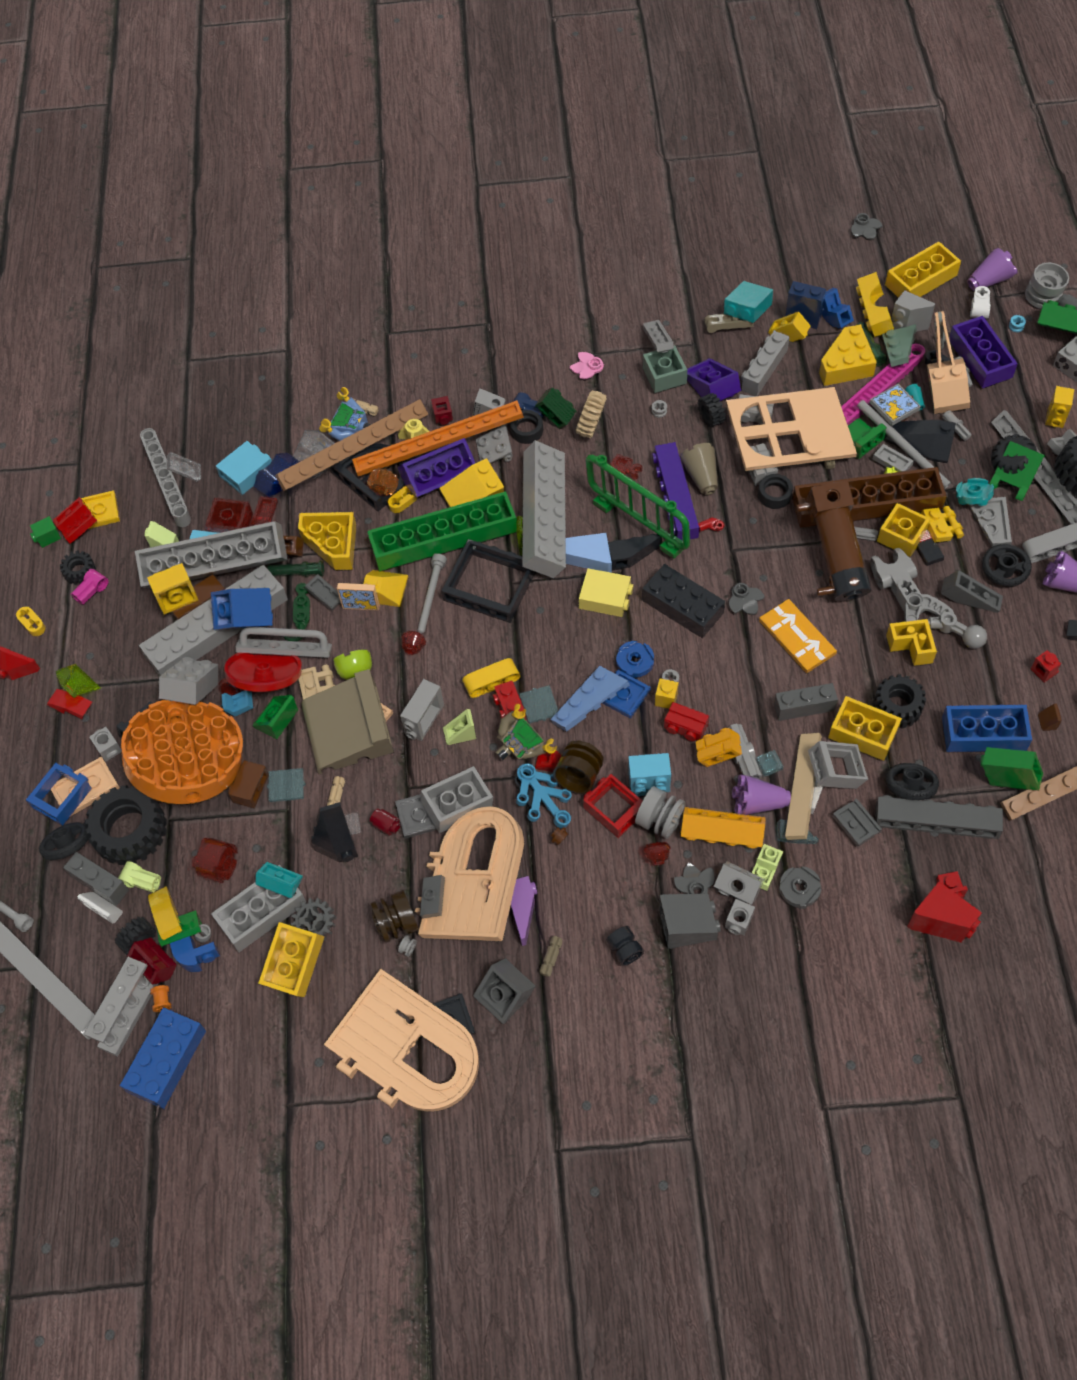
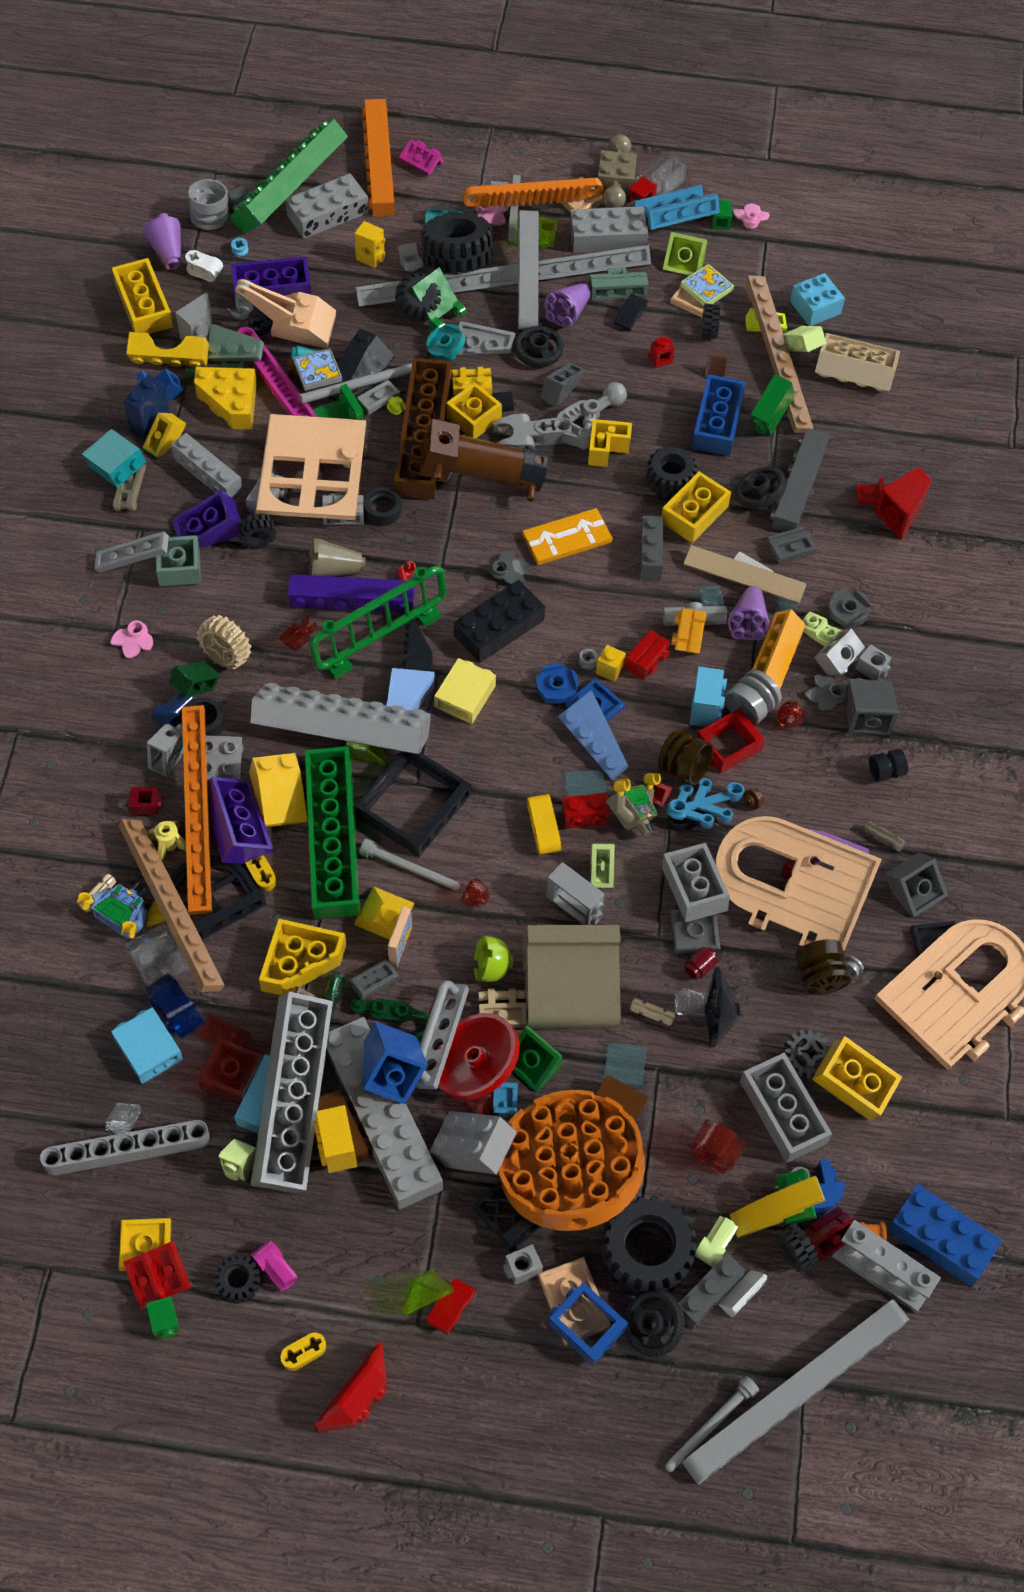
camera: 85 degrees left, 0 degrees up
(278, 879) = (764, 1073): teal slope -> none
(383, 481) = (240, 879): clear orange gear -> none
(432, 896) = (808, 924): dark grey plate -> none
(659, 413) = (226, 578): light grey bush -> none
(824, 770) = (725, 535): light grey window -> none
(865, 226) = (43, 329): dark grey plate -> none
(959, 428) = (348, 334): light grey axle -> none

